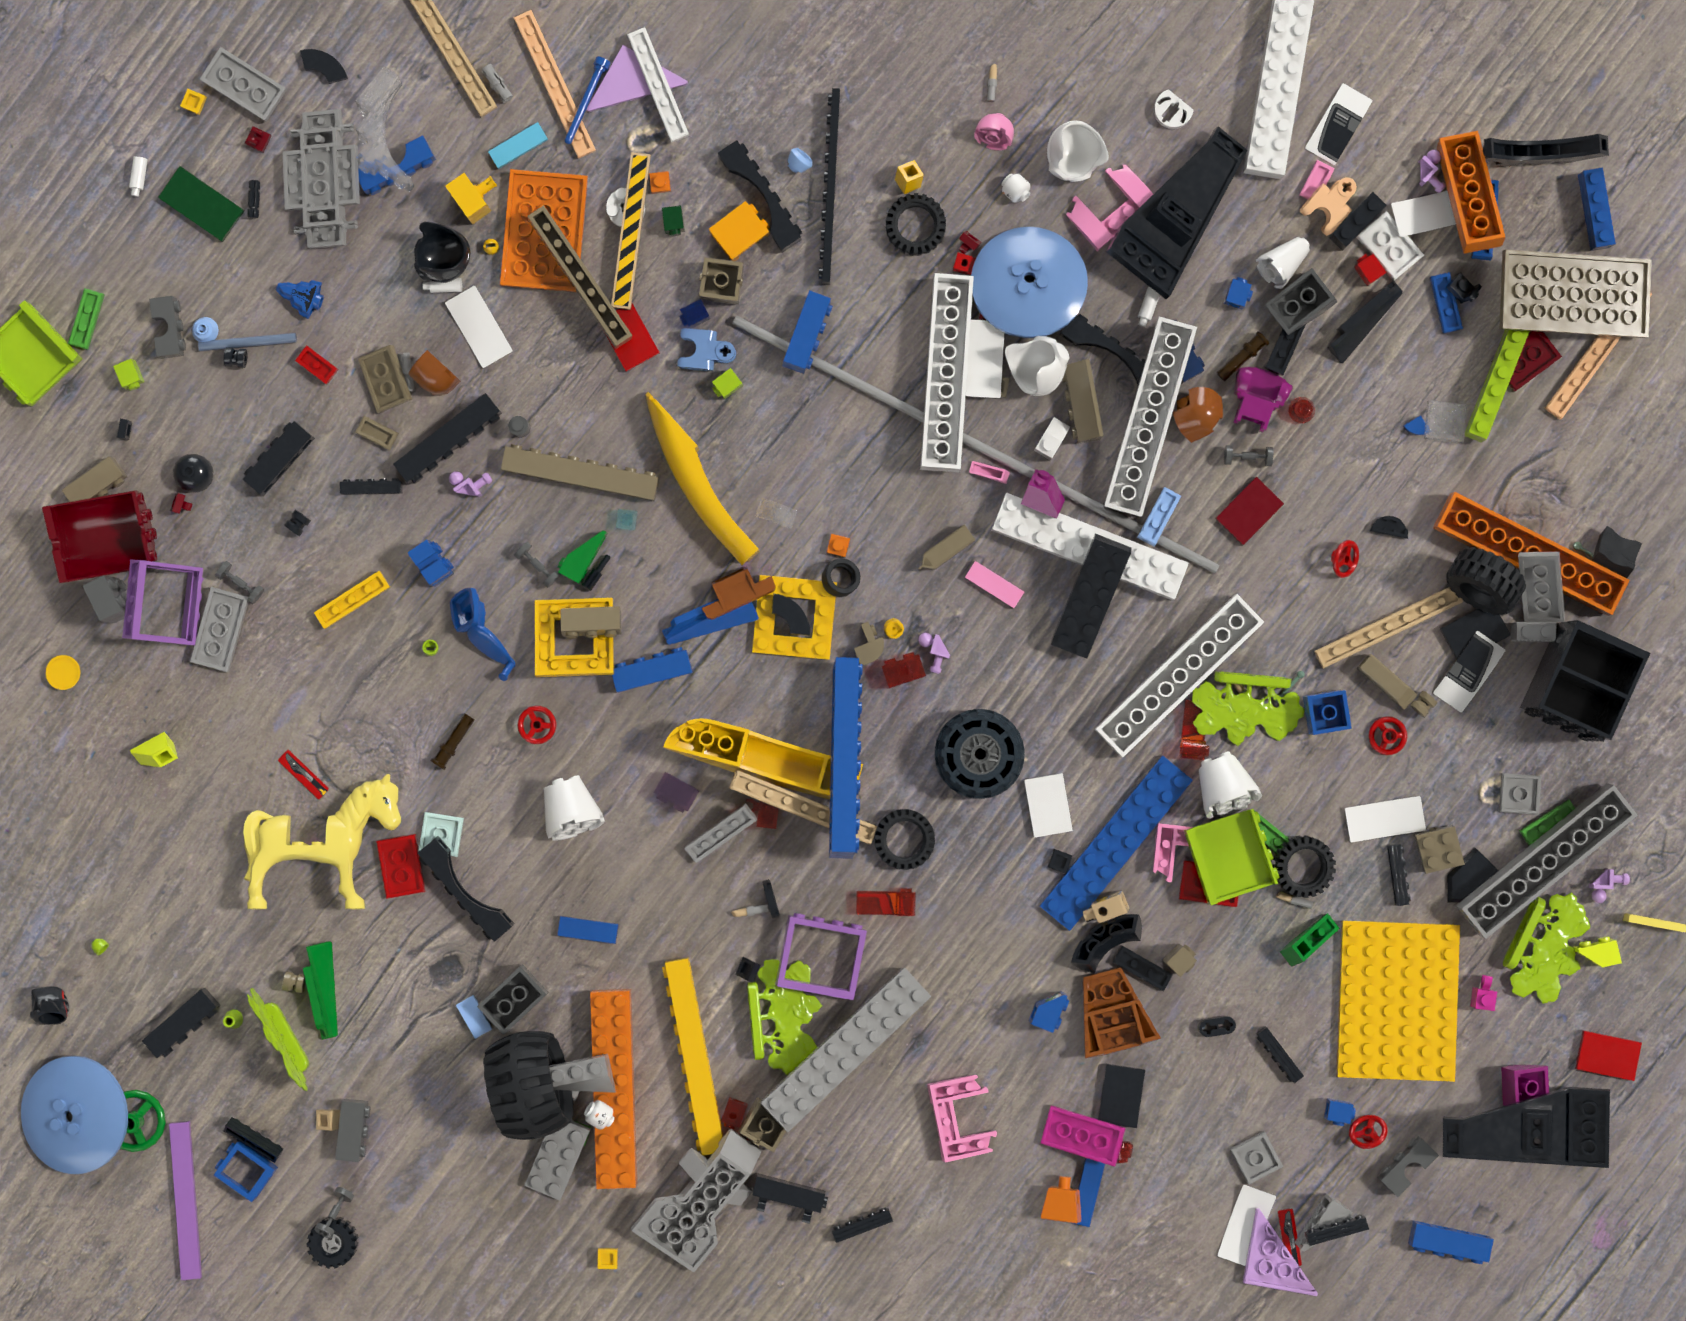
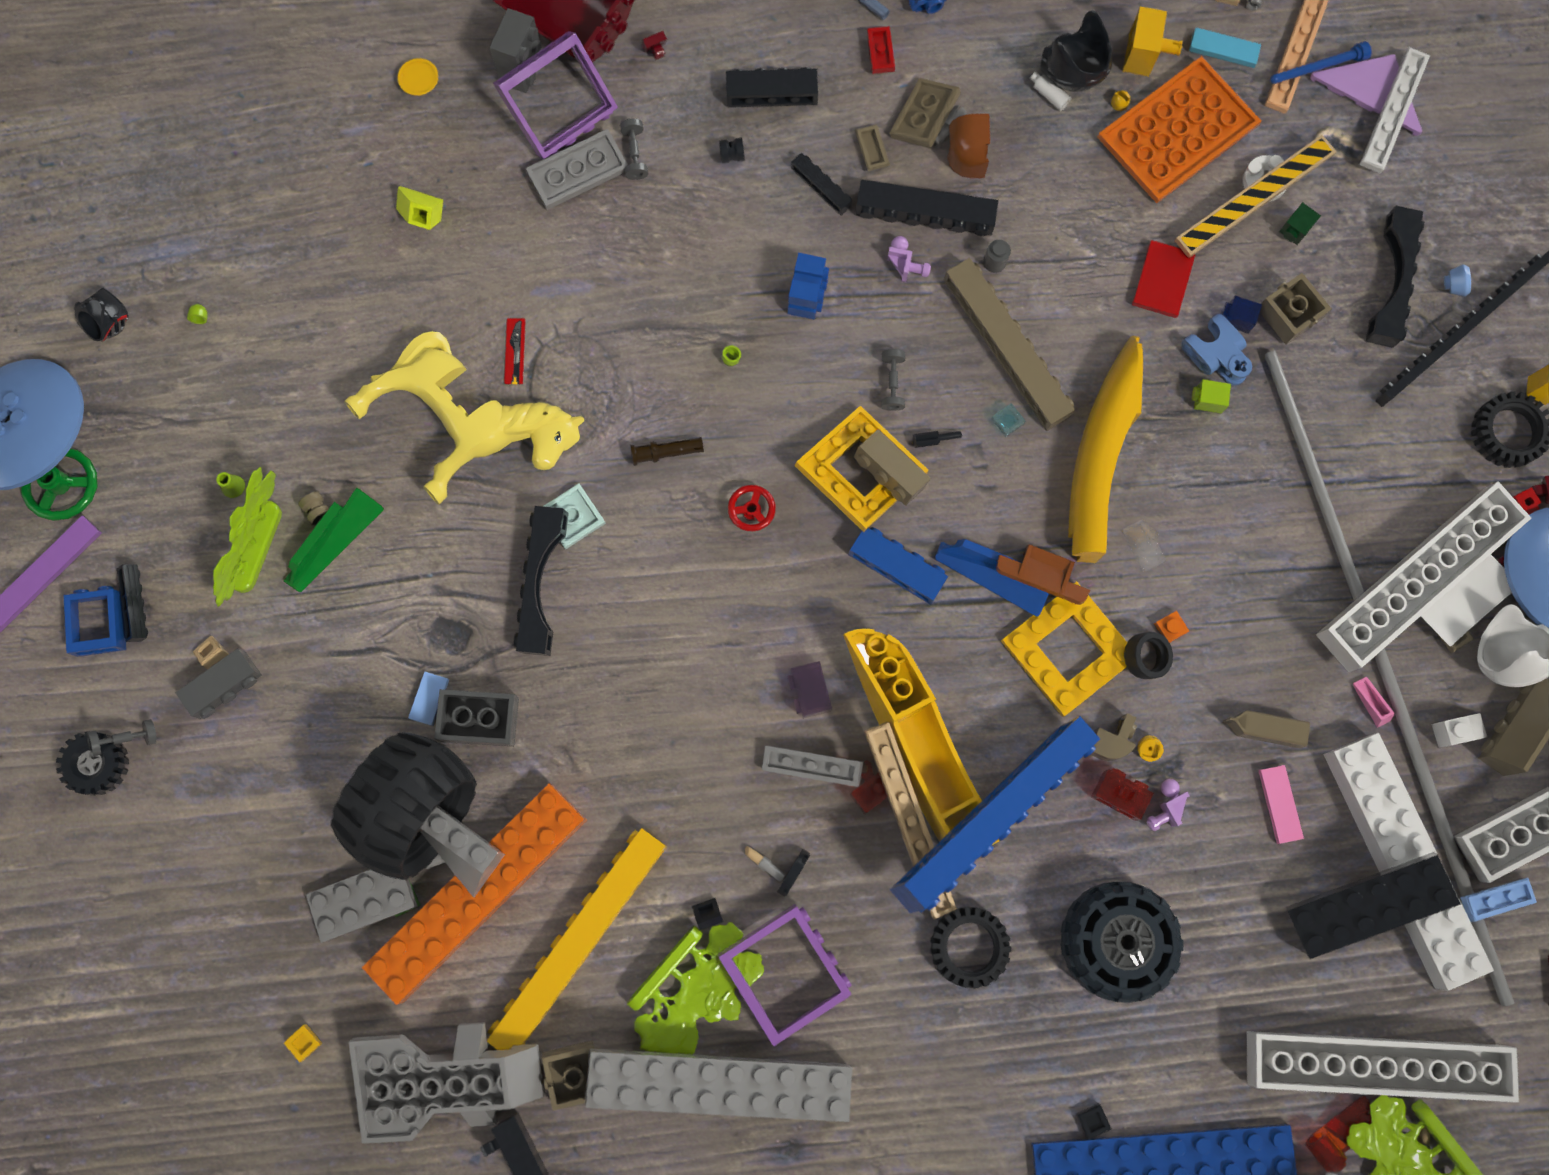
camera: 40 degrees right, 10 degrees down
(180, 1023) = (187, 443): black brick -> none
(193, 473) = (691, 33): black cylinder -> none
(352, 599) = (709, 253): yellow plate -> none
(400, 866) = (509, 507): red tile -> none
(469, 617) = (790, 362): blue piece -> none
(478, 326) = (1044, 150): white sticker -> none
(570, 809) = (703, 606): white cone -> none
(579, 277) = (1176, 186): dark tan brick -> none
(579, 561) = (934, 412): green slope -> none
(588, 929) = (606, 728): blue tile -> none
(599, 1114) = (436, 901): white head -> none
(660, 182) = (1316, 186): orange plate -> none
(733, 1113) = (556, 1032): clear red brick -> none
(739, 230) = (1350, 284): light orange panel -> none
(792, 614) = (1073, 642): black tile -> none
(807, 331) = (1327, 421): blue brick -> none
(886, 902) = (894, 988): clear red door -> none
(1043, 494) = (1412, 767): magenta slope -> none
(1048, 805) = (1134, 1057): white tile -> none

